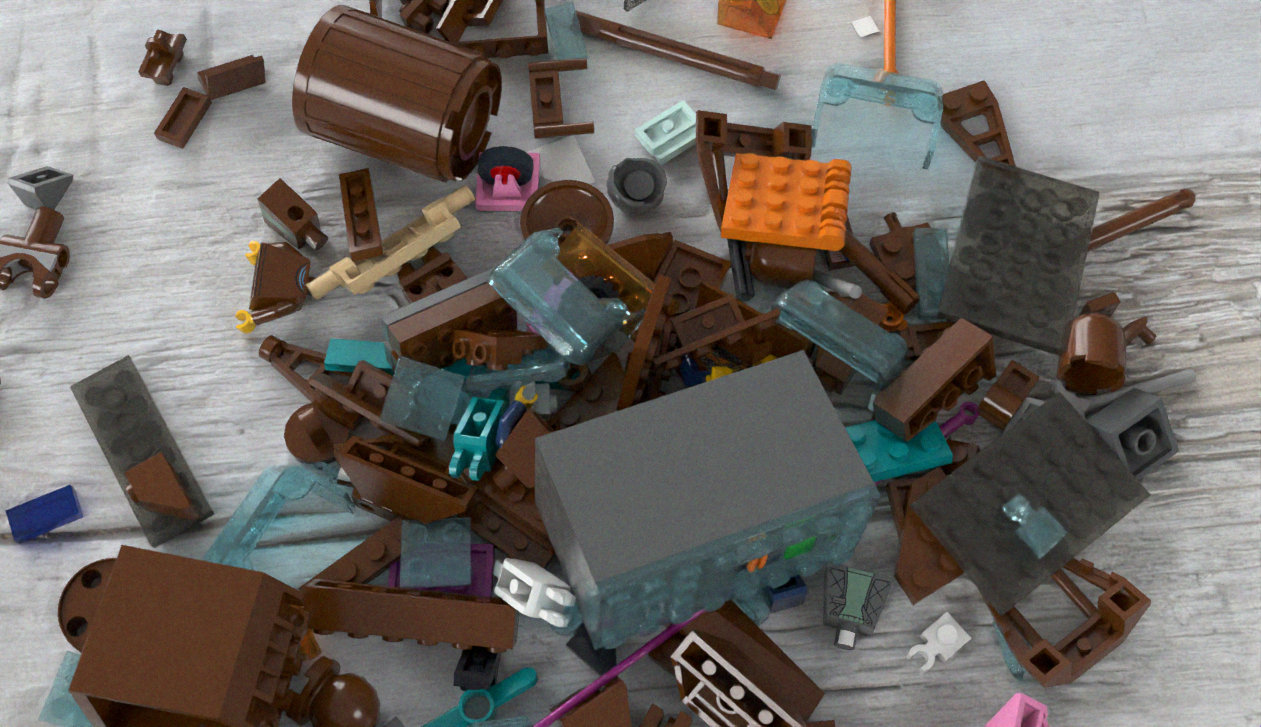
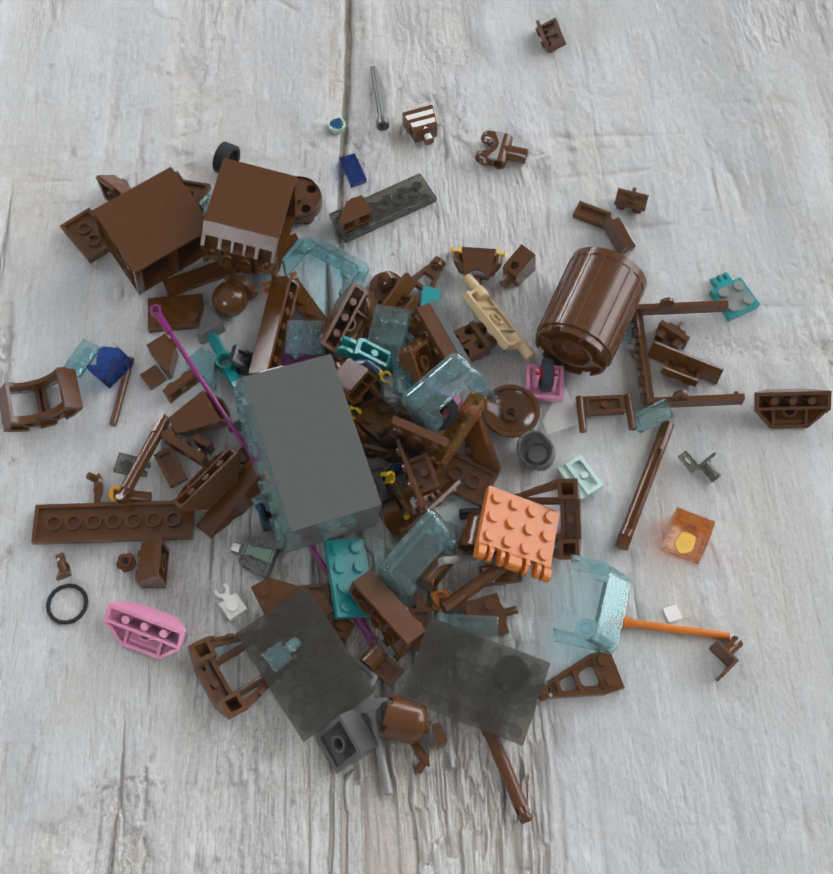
camera: 90 degrees right, 0 degrees up
(41, 187) = (543, 151): dark grey slope -> none
(360, 215) = (516, 300): reddish brown plate -> none

